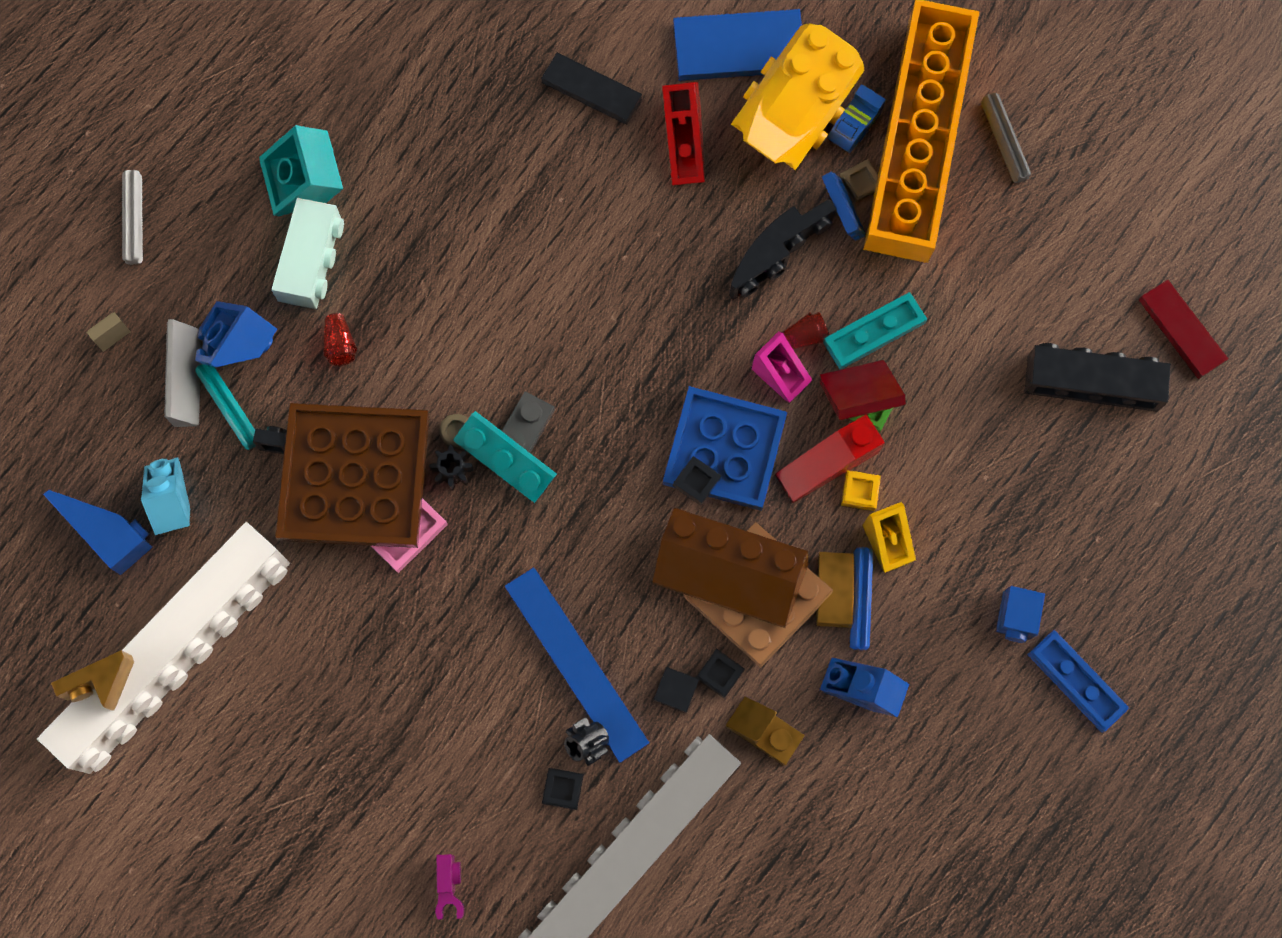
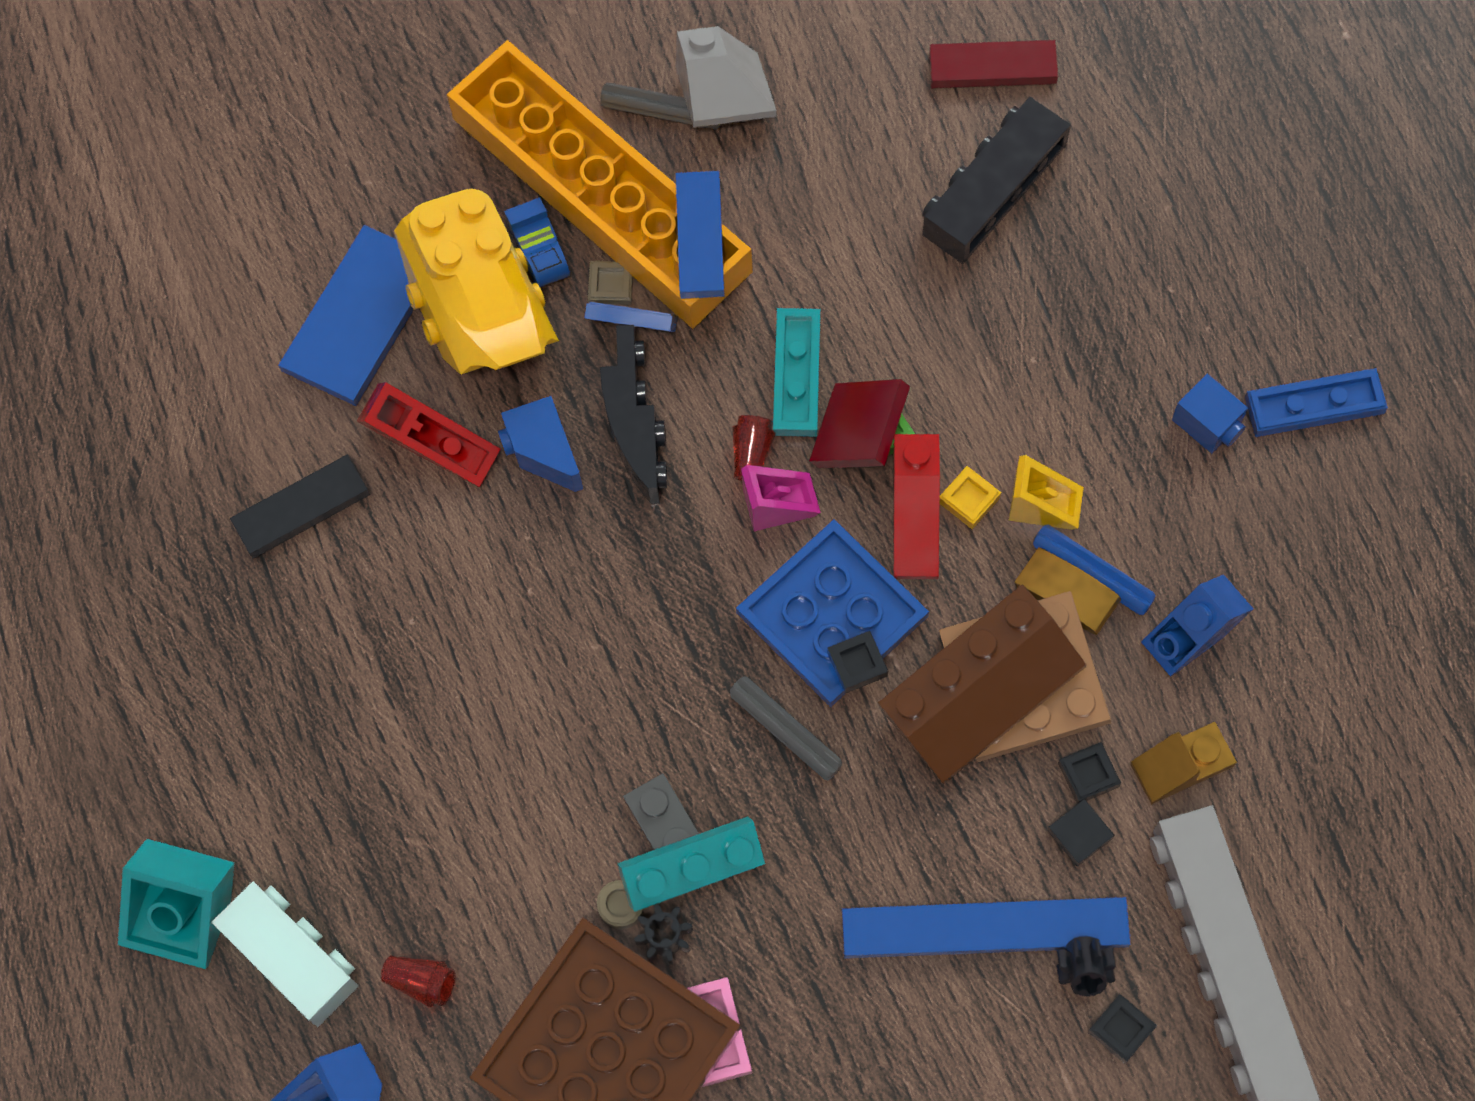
camera: 50 degrees left, 5 degrees down
(630, 464) = (786, 728): none -> dark grey axle
(723, 202) = (540, 443): none -> blue slope
(921, 209) = (699, 235): none -> blue tile
(1048, 161) = (721, 78): none -> light grey slope

